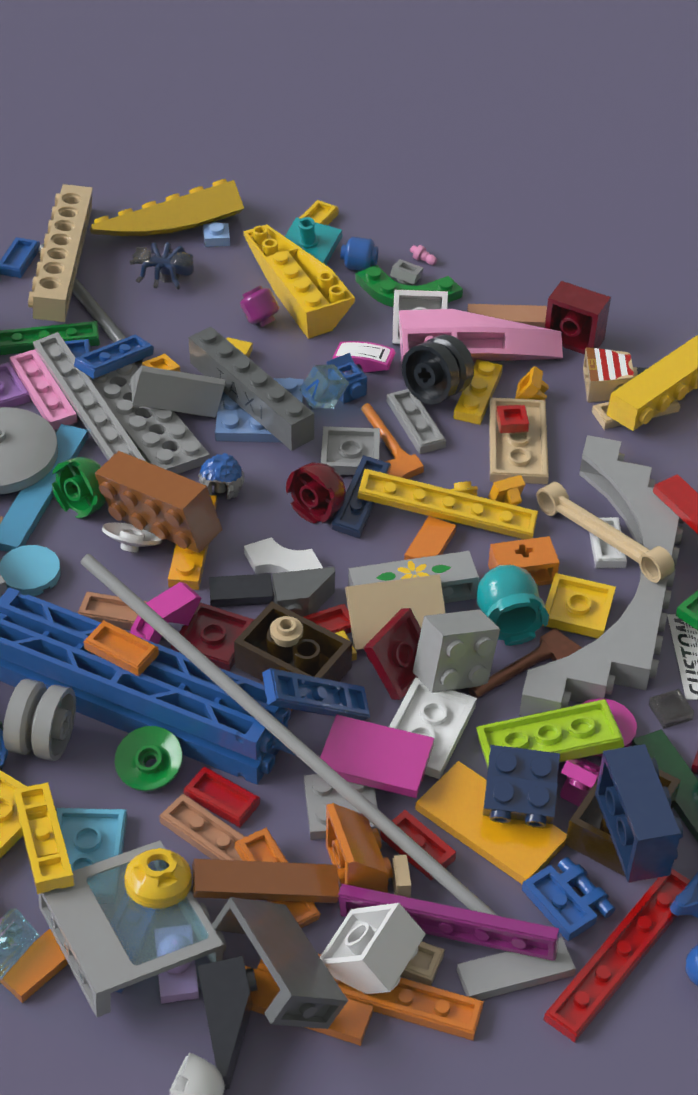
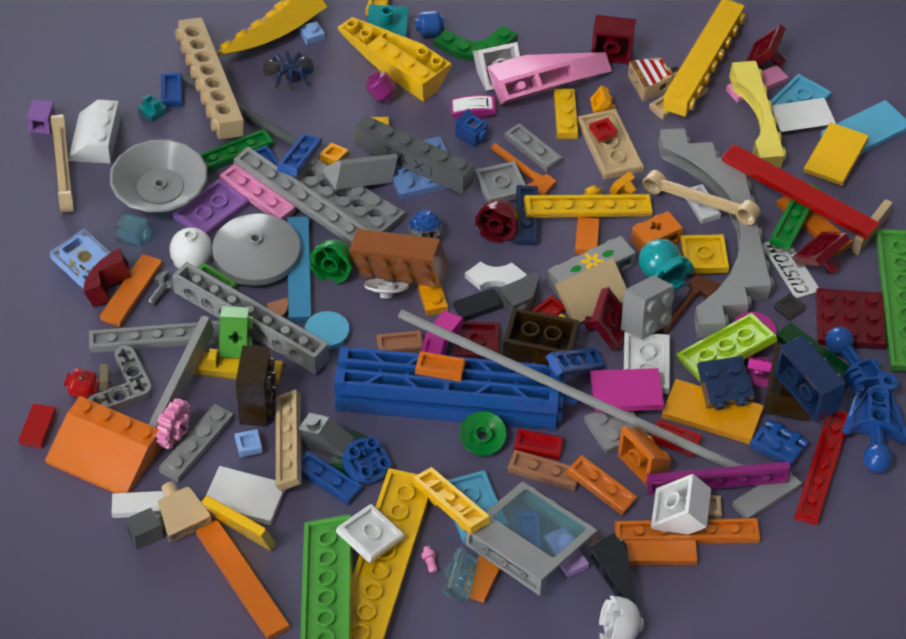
camera: 20 degrees left, 5 degrees up
(39, 719) = (407, 428): light grey wheel -> none
(158, 888) = (536, 509): yellow piece -> none
(265, 880) = (599, 486): dark orange tile -> none
(286, 631) = (536, 324): tan plate -> none
(306, 986) = (665, 543): dark grey panel -> none
(323, 386) = (461, 139): clear light blue brick -> none
(401, 876) = (678, 461): tan tile -> none
(406, 272) = (471, 30): light grey plate -> none
(420, 253) = (471, 10): bright pink piece -> none
(437, 369) = (537, 106): black wheel -> none
(523, 314) = (569, 44): nougat tile -> none

